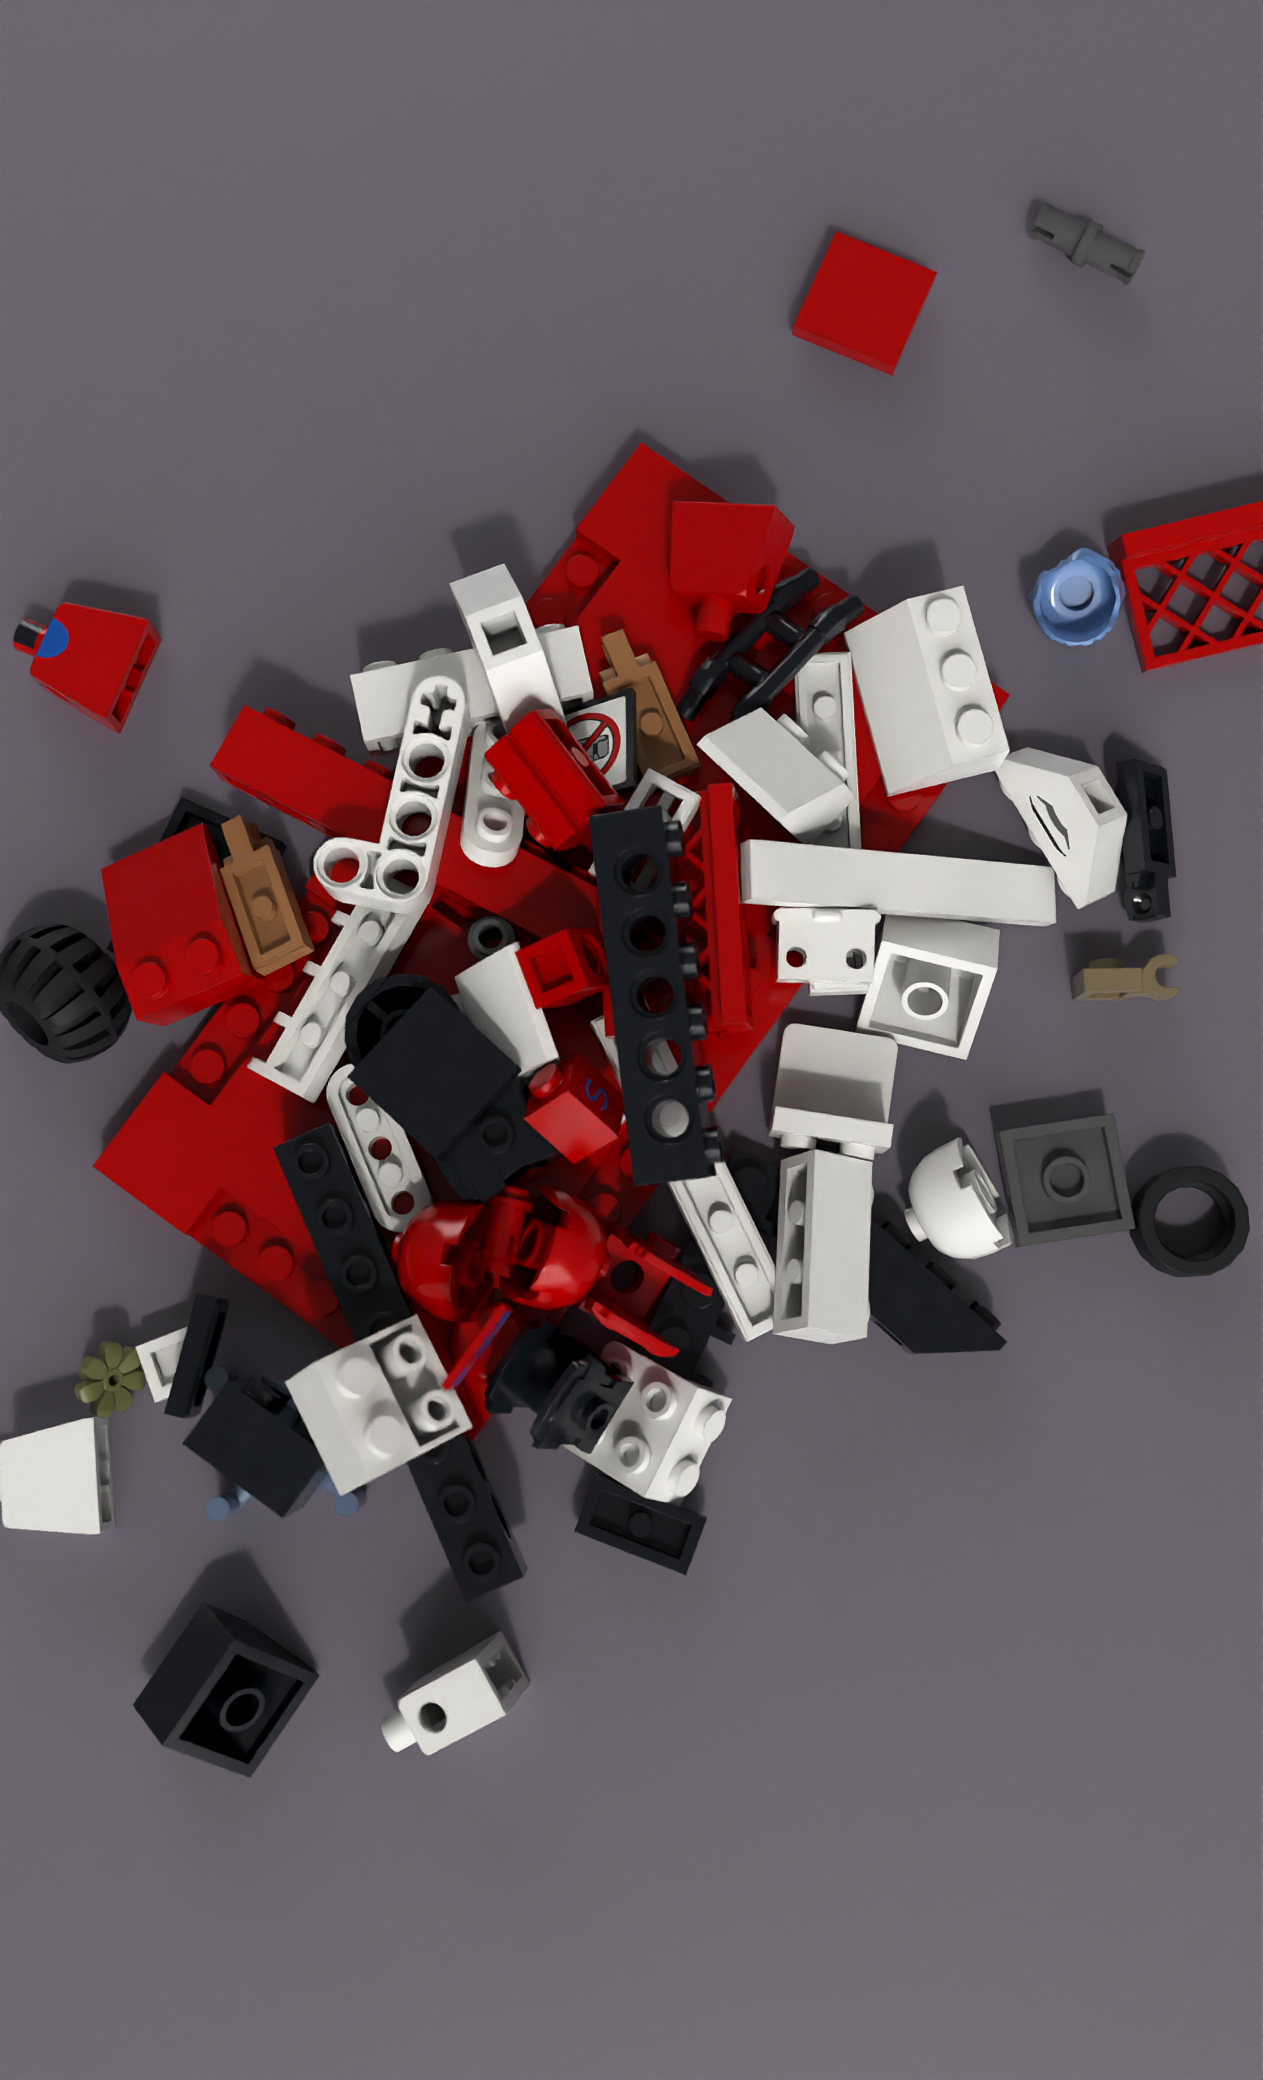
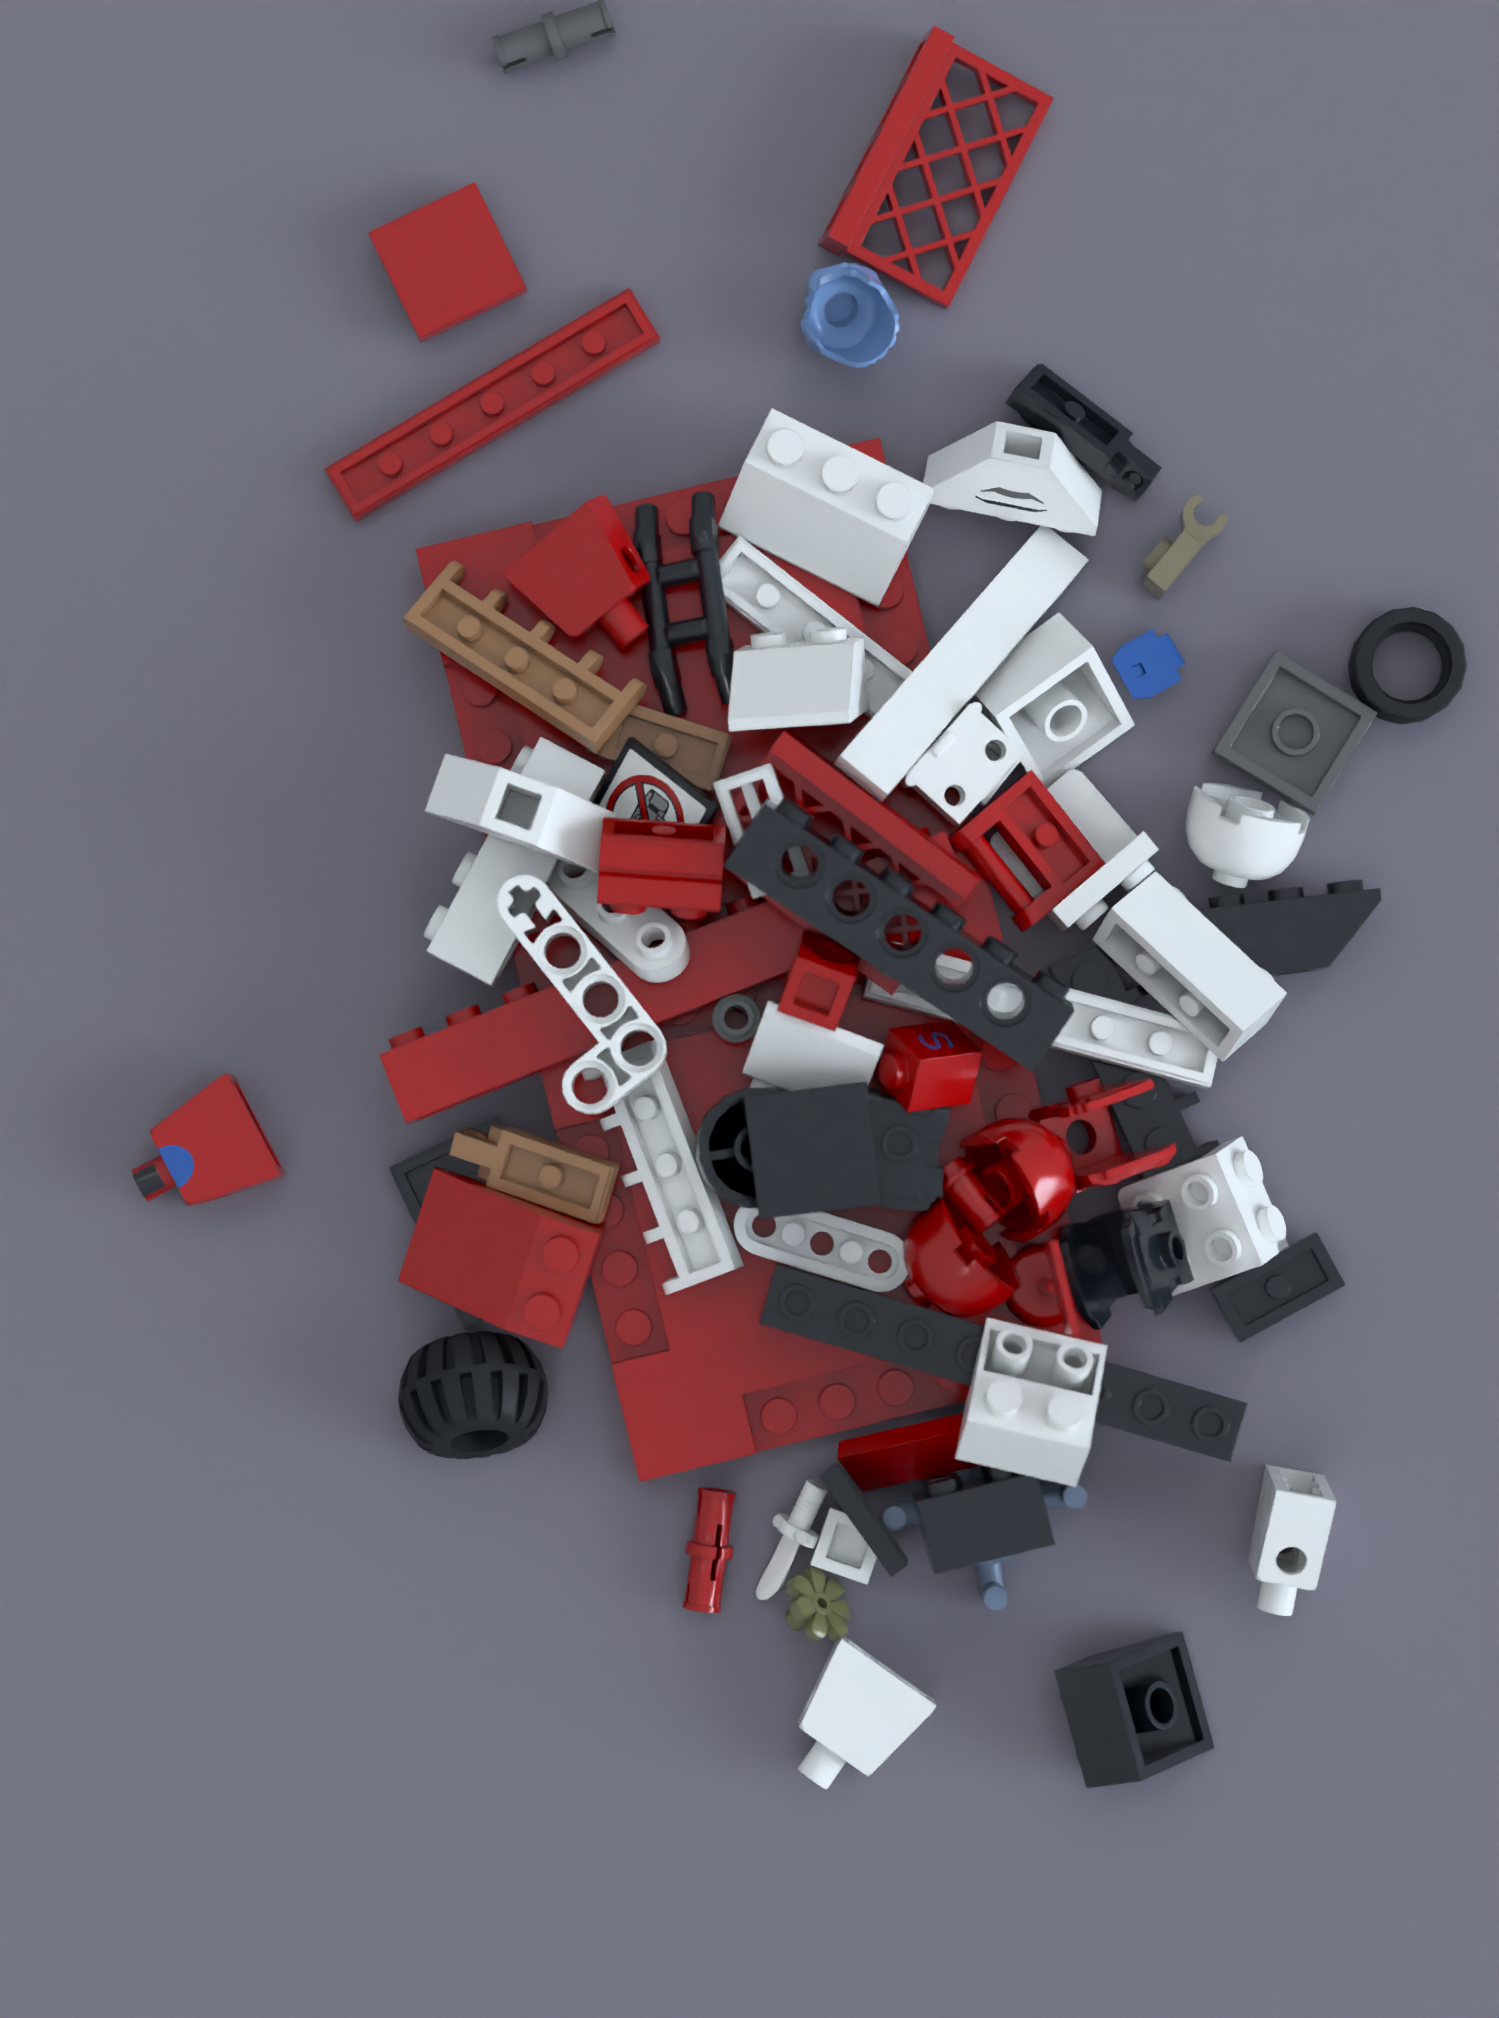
camera: 55 degrees left, 5 degrees up
(87, 1262) = (709, 1550): none -> red pin
(153, 1317) = (795, 1532): none -> white piece
(269, 1339) = (903, 1453): none -> red tile
(622, 571) = (521, 660): none -> medium nougat hinge
(792, 419) = (492, 404): none -> red tile
(822, 1053) = (1040, 838): none -> red plate
(1019, 1030) = (1148, 664): none -> blue piece

